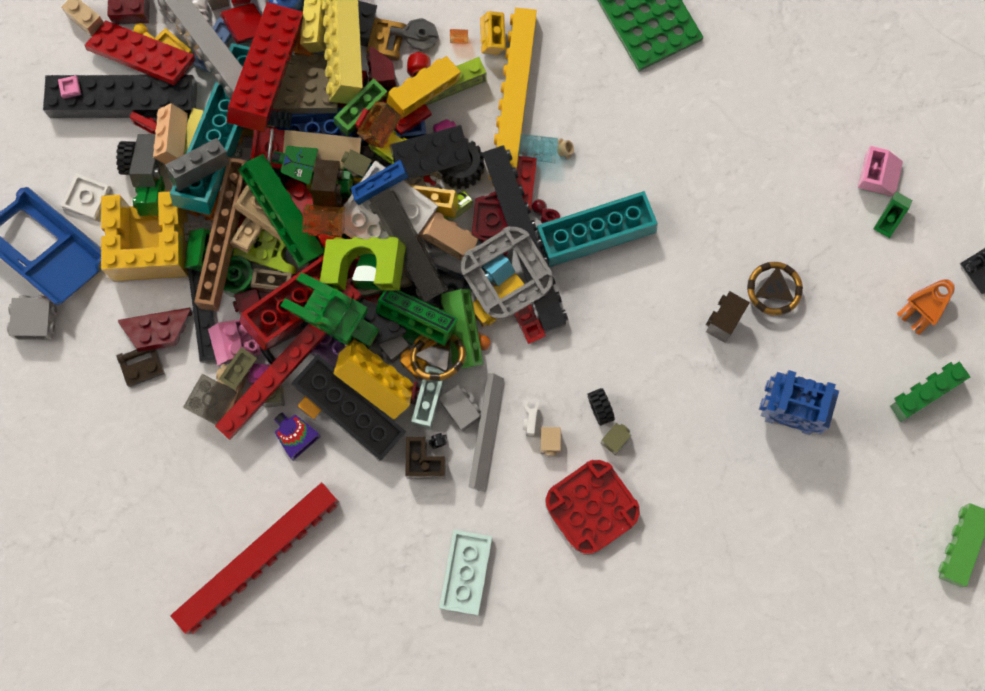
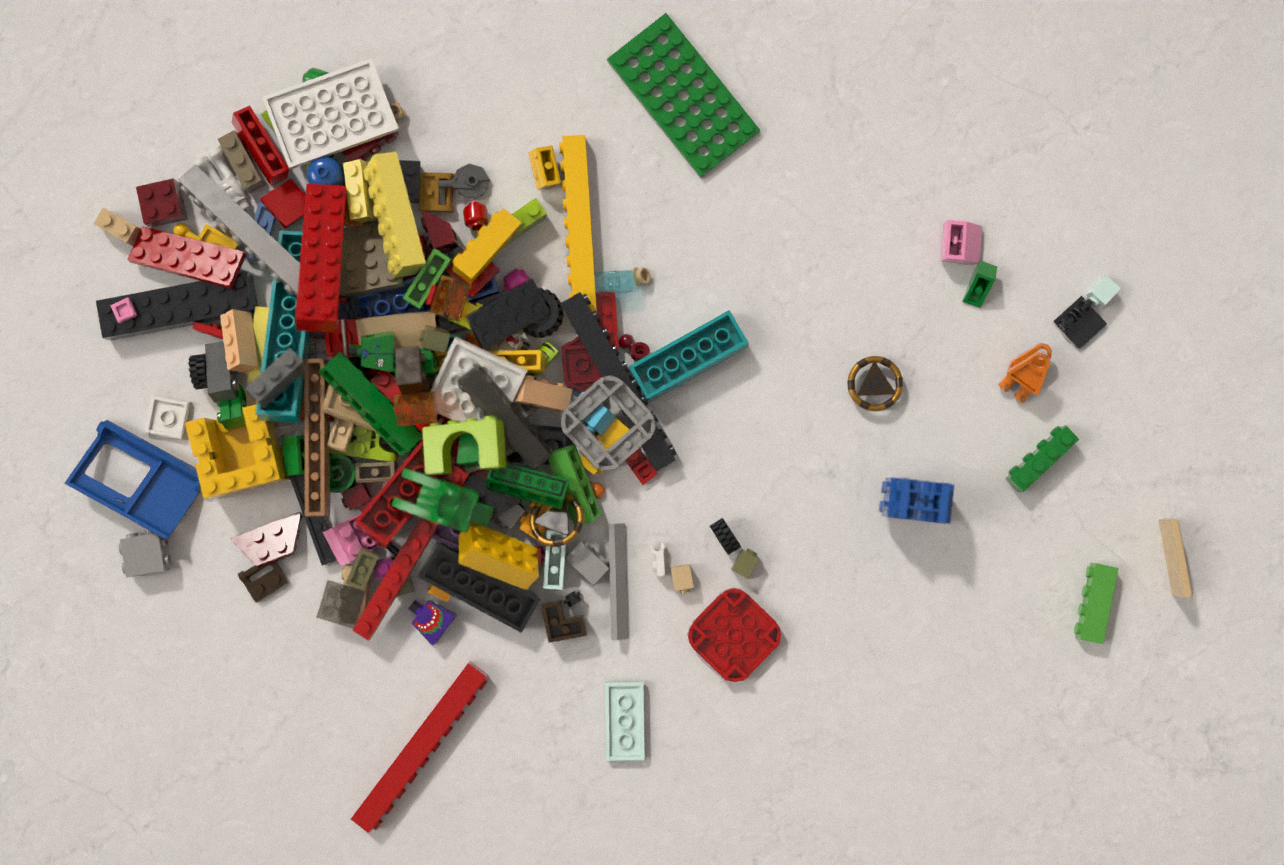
camera: 10 degrees left, 10 degrees up
(379, 182) = (463, 360): blue plate -> none
(459, 36) = (510, 176): clear orange tile -> none
(723, 322) = (834, 423): dark brown brick -> none

